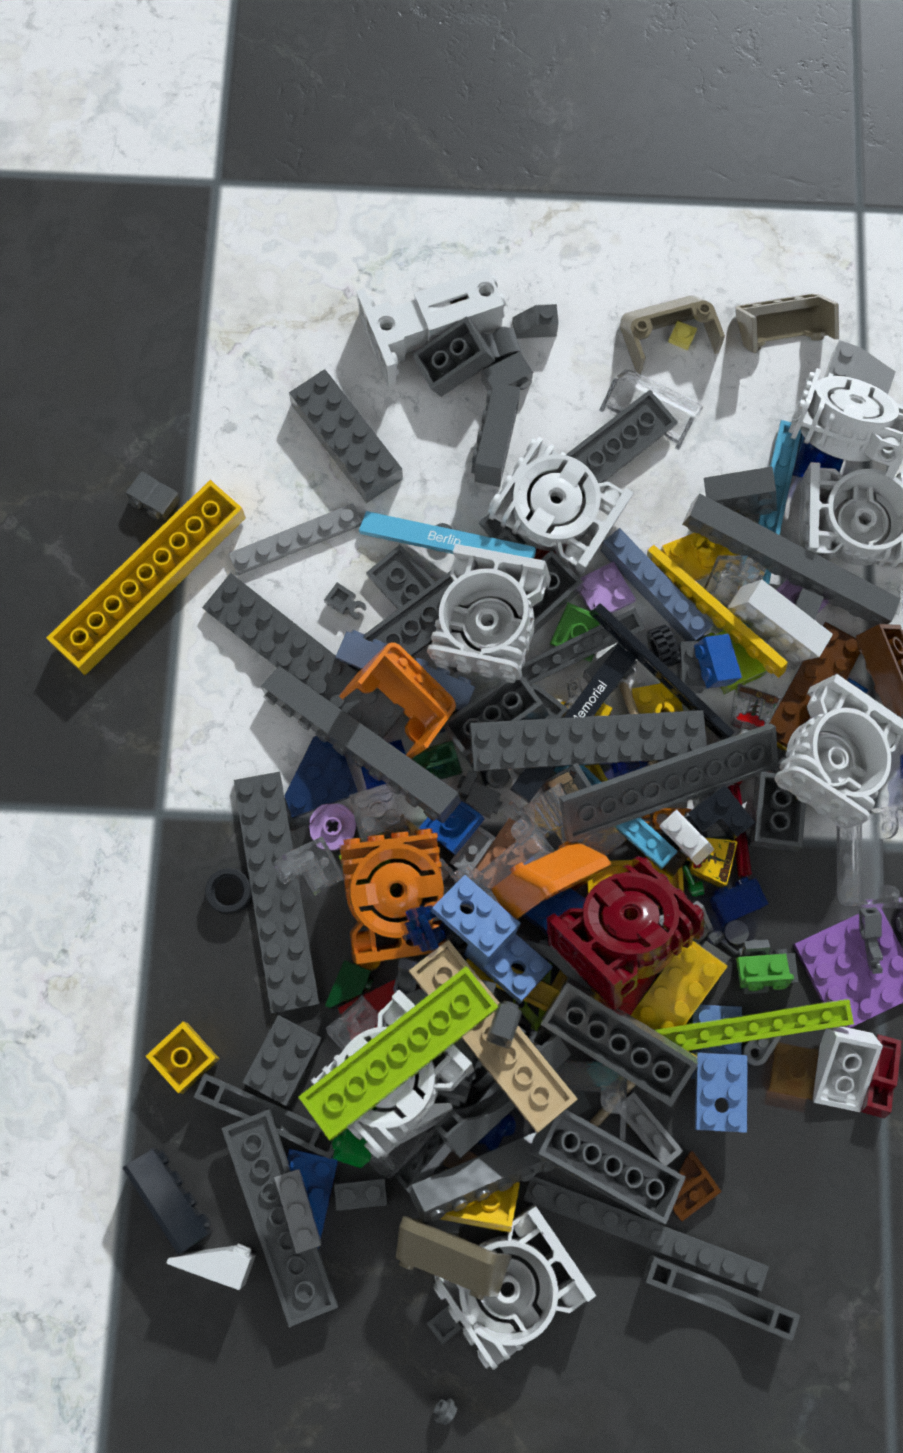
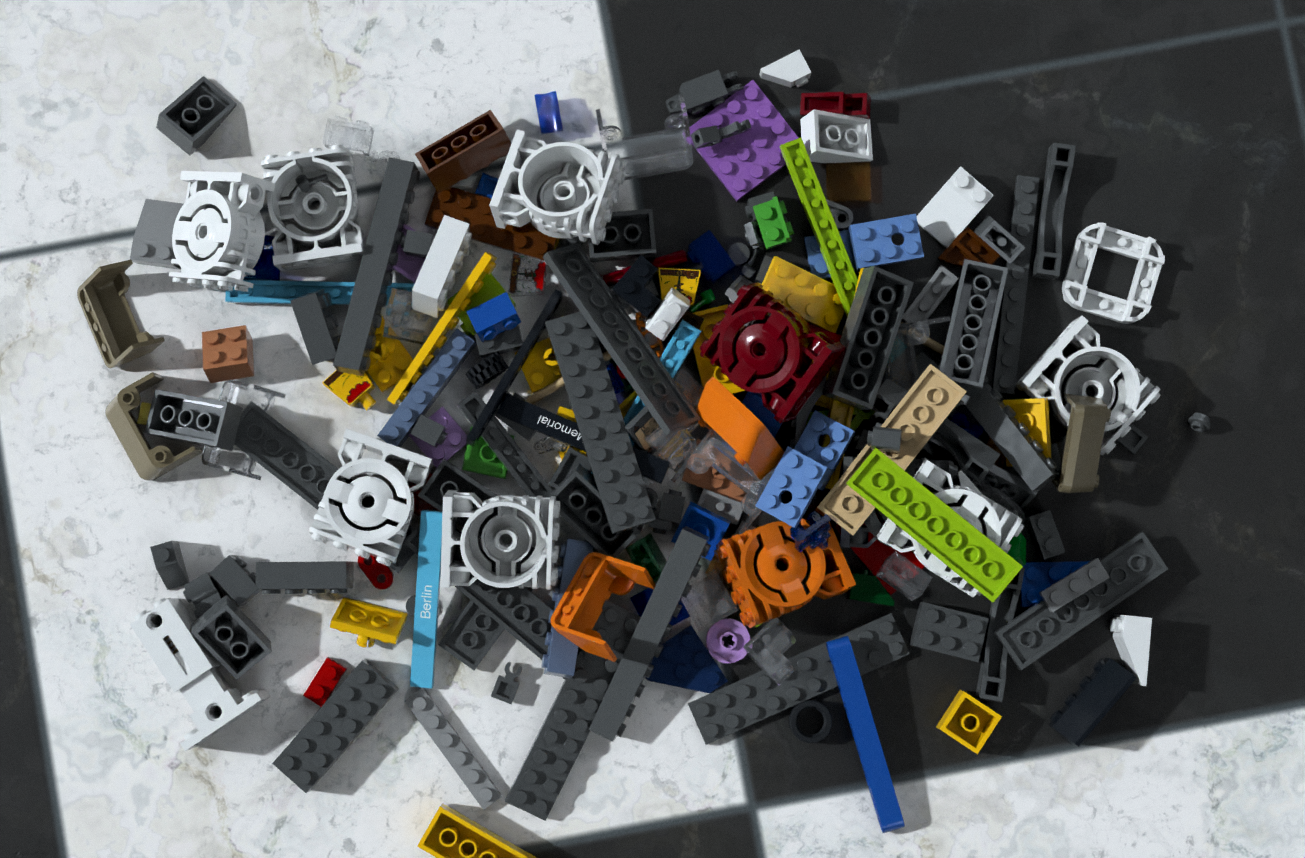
camera: 100 degrees left, 10 degrees up
(199, 943) = (865, 734): none -> blue beam
(391, 436) = (325, 681): none -> red plate
(438, 483) = (368, 622): none -> yellow plate
(482, 500) = (374, 570): none -> red plate
(613, 577) = (429, 431): none -> dark grey brick
(669, 518) = (352, 388): none -> yellow torso
(670, 364) = (193, 420): none -> dark grey brick
(682, 1345) = (1149, 264): none -> white plate
(700, 1224) = (999, 239): none -> dark grey slope
(728, 409) = (227, 354): none -> nougat brick
(745, 1182) = (953, 207): none -> white slope
(886, 514) = (305, 184): none -> dark grey hand

